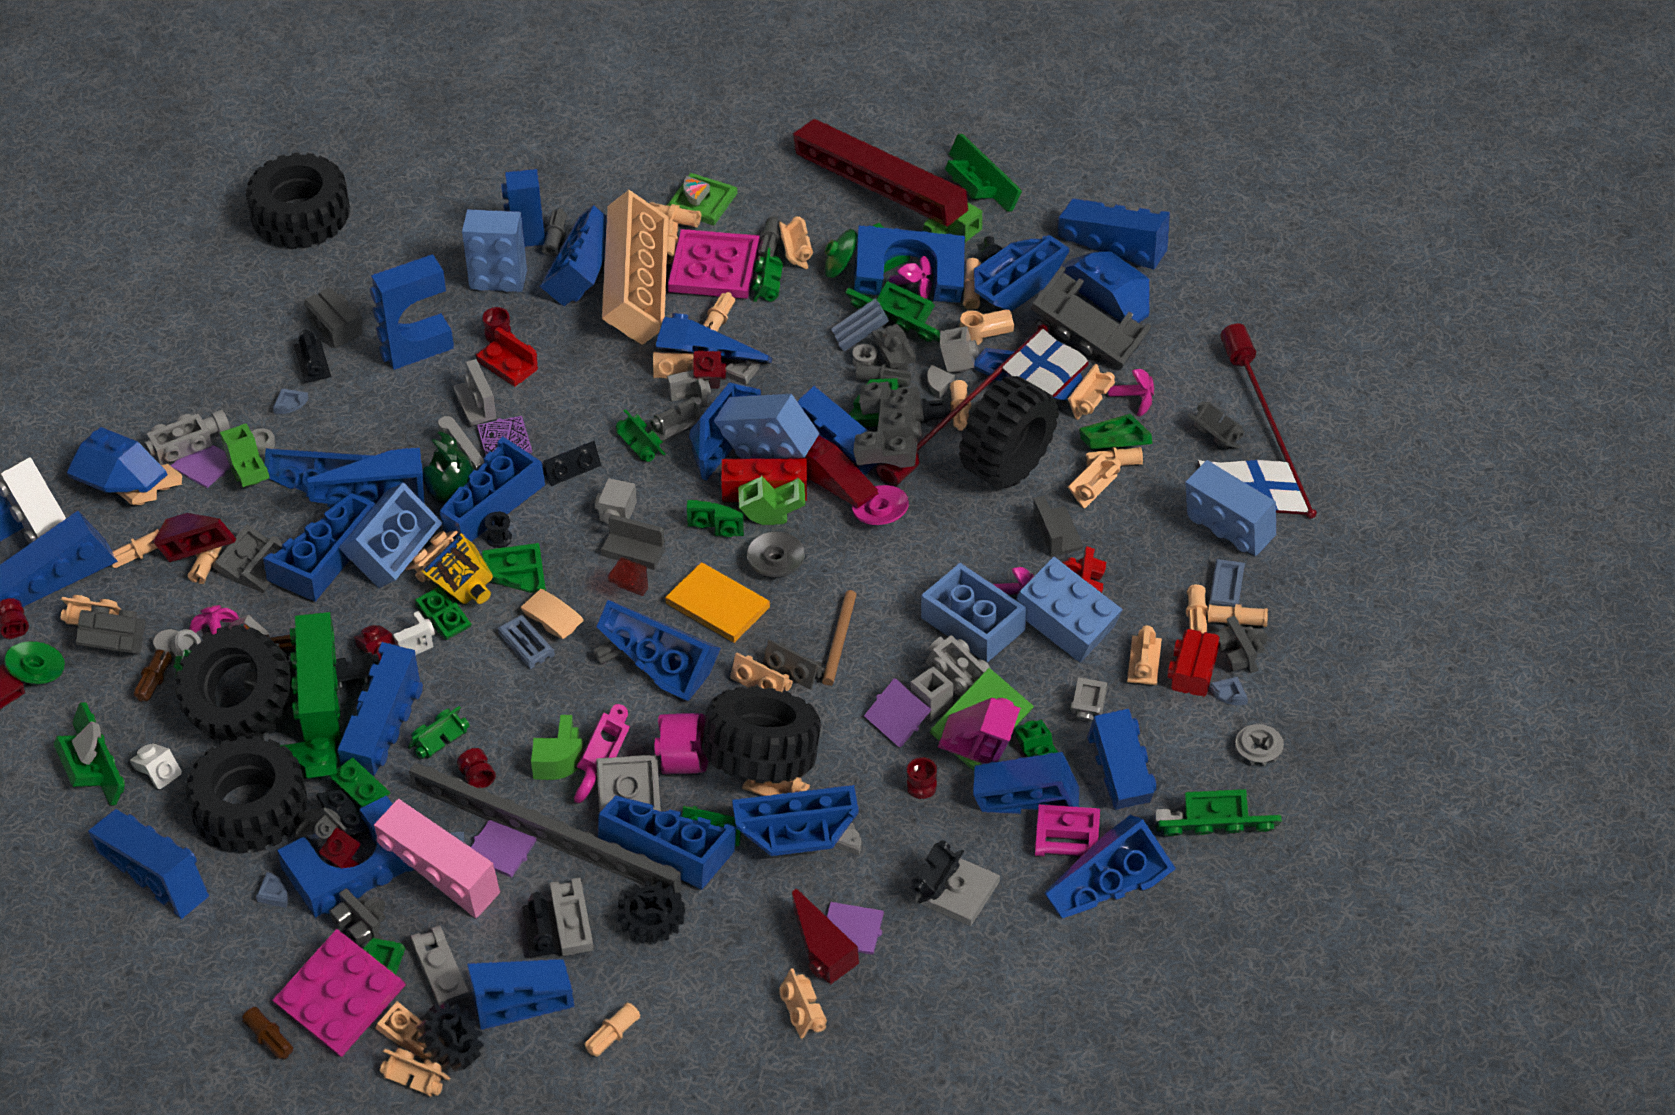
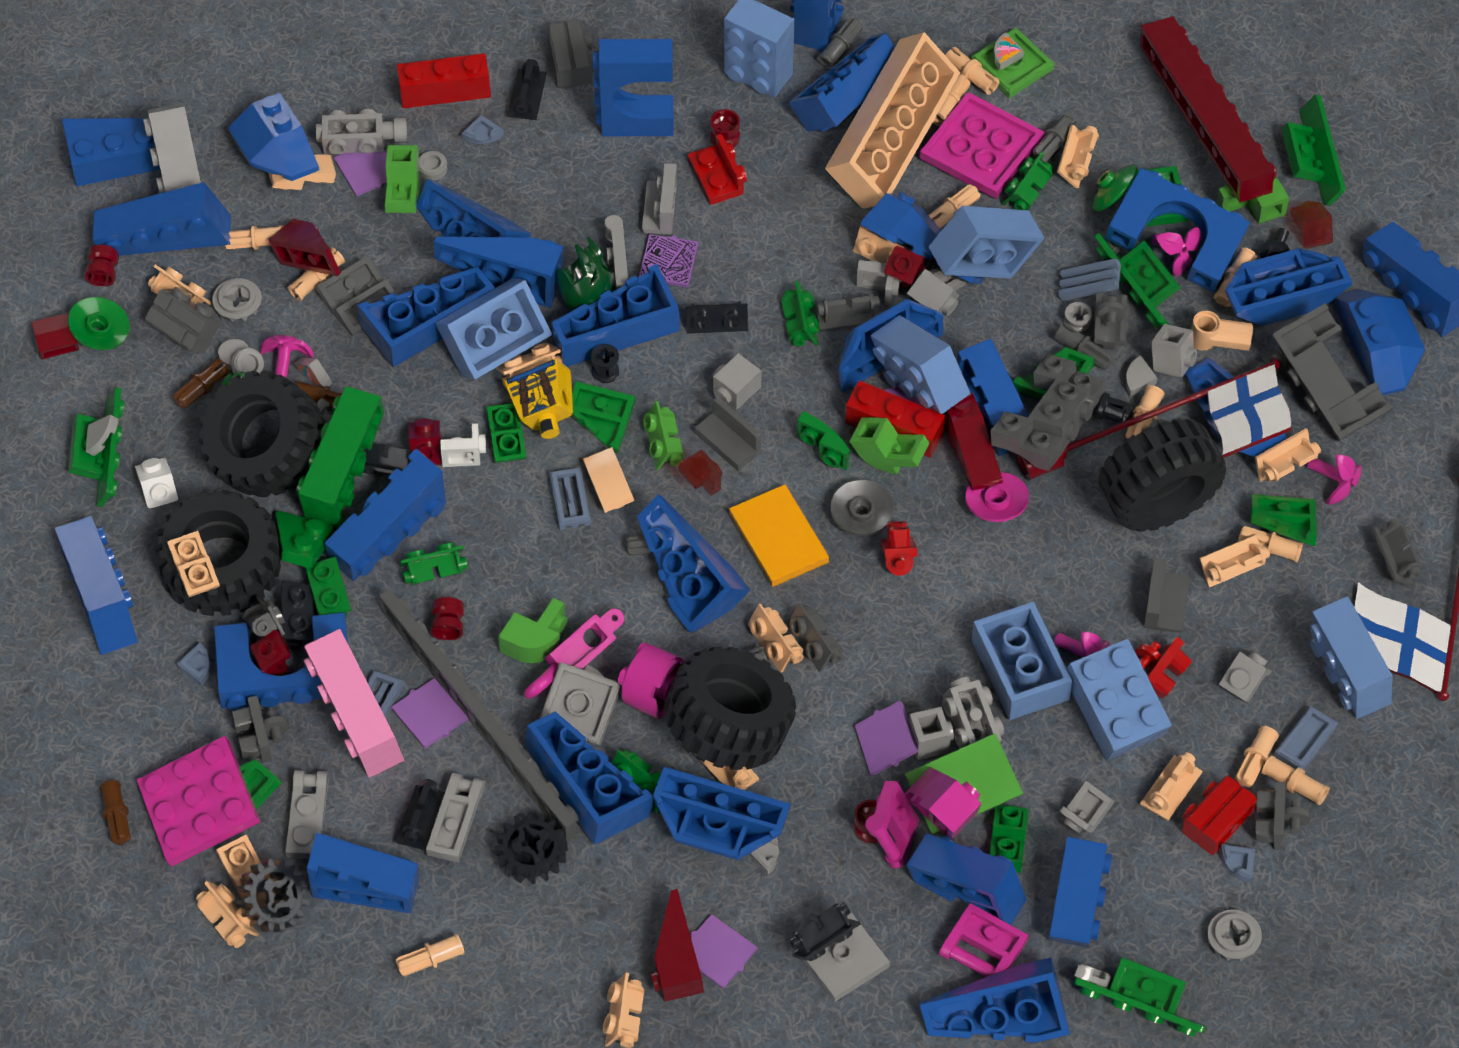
camera: 25 degrees right, 10 degrees up
(157, 593) = (229, 291): none -> light grey gear
(235, 803) = (193, 564): none -> light nougat slope
(236, 373) = (444, 80): none -> red brick
(576, 566) = (659, 425): none -> bright green hinge
(742, 374) = (934, 293): none -> light grey brick
(766, 322) = (986, 242): none -> medium blue brick
(822, 567) = (898, 548): none -> red hips
(839, 638) = (877, 627): medium nougat bar -> none
(944, 769) = (900, 818): none -> dark pink plate
(1009, 222) = (1314, 223): none -> clear red bracket
(1153, 556) = (1245, 675): none -> light grey bracket

